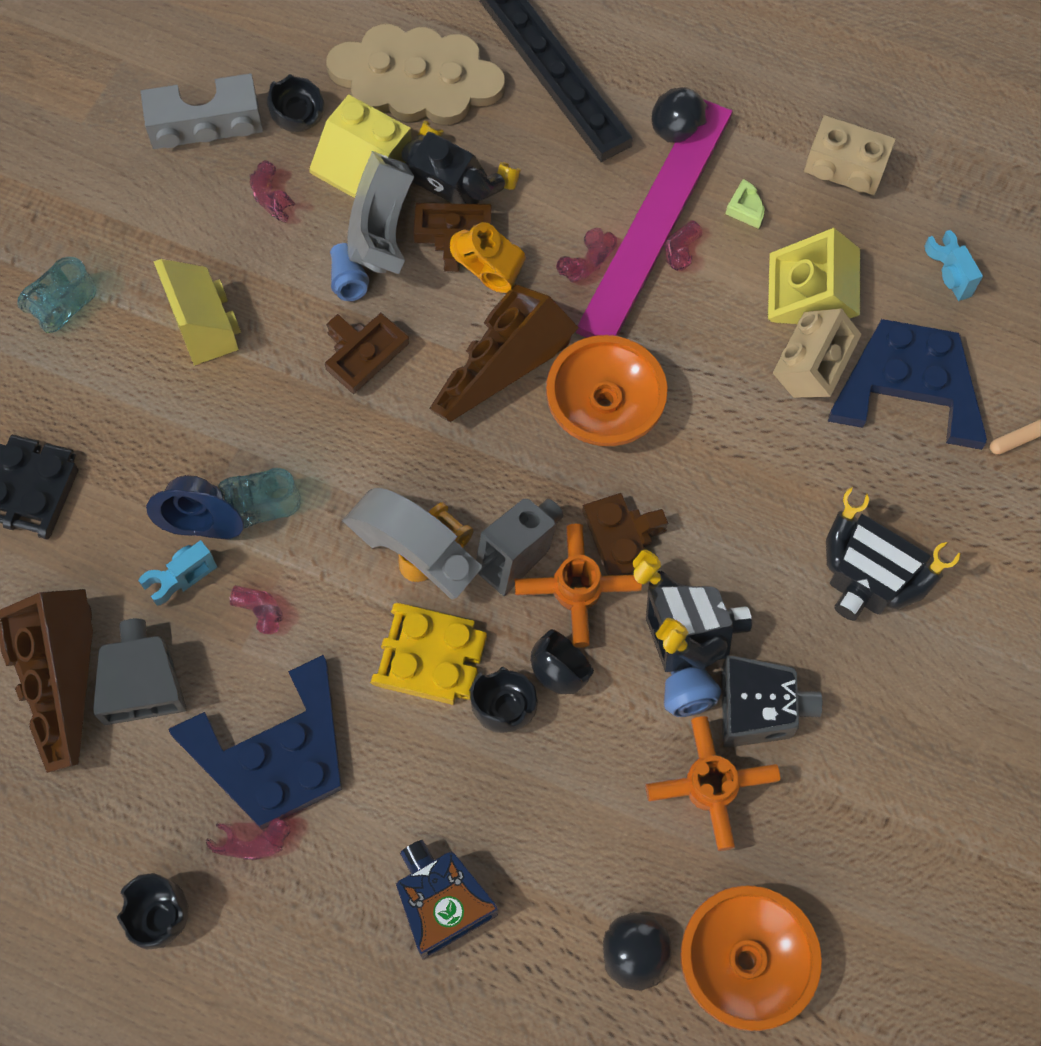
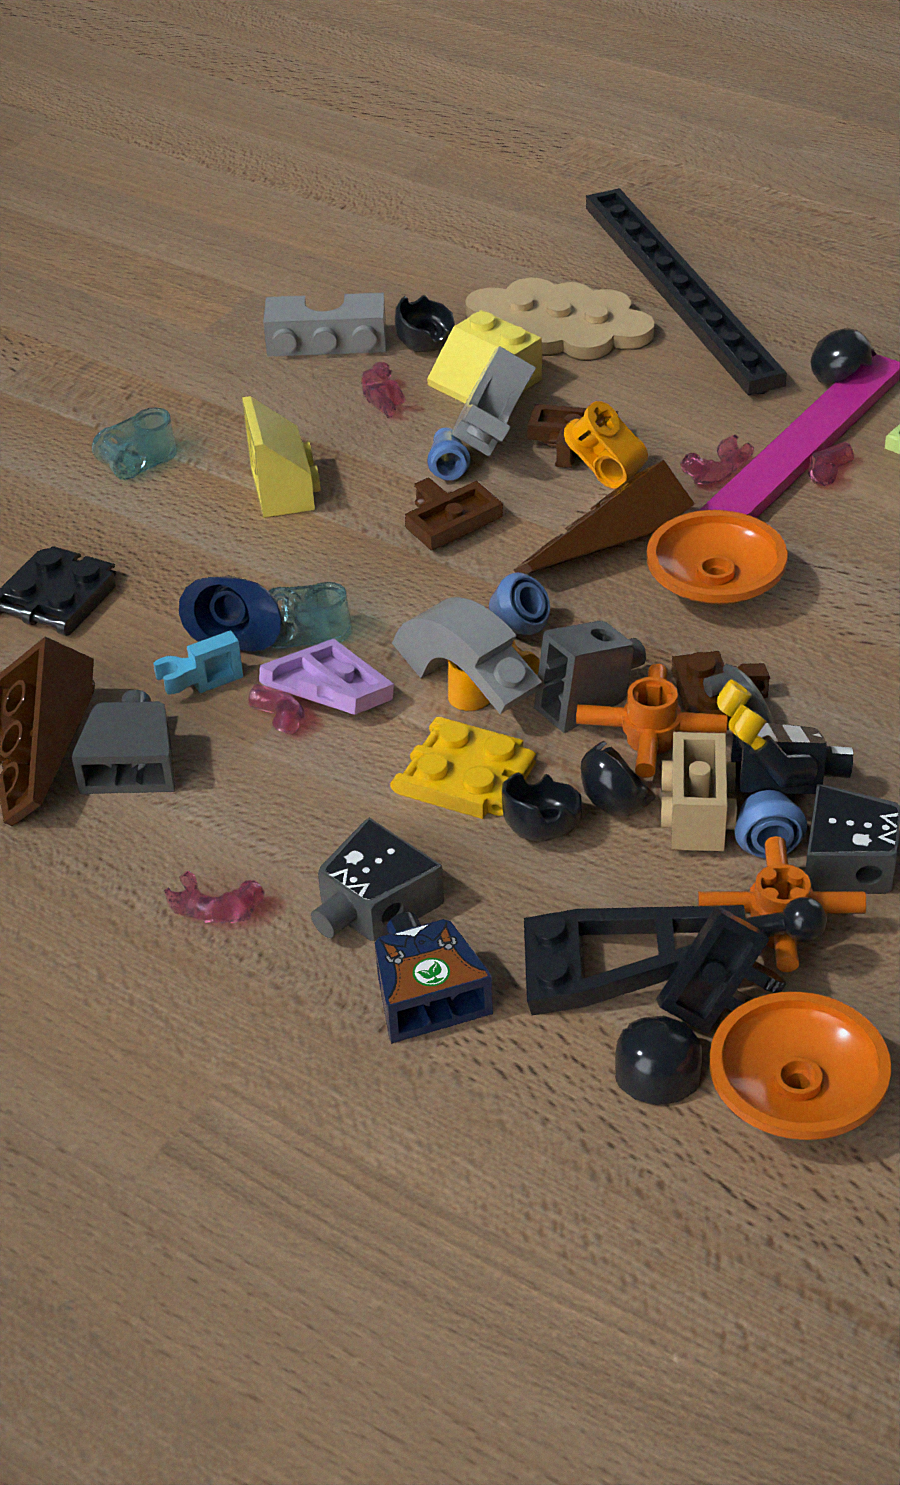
camera: 15 degrees right, 25 degrees down
(153, 911) = (86, 940): black hair -> none
(281, 766) = (271, 843): dark blue wing -> none
(296, 572) = (330, 677): none -> lavender wing
(380, 807) = (374, 880): none -> torso
(446, 466) = (521, 603): none -> medium blue cone
(453, 170) = (579, 373): black torso -> none
(541, 858) = (557, 958): none -> black plate
(632, 679) = (699, 789): none -> tan brick
(646, 540) = (715, 684): none -> dark grey bar
(678, 873) = (714, 969): none -> black hinge

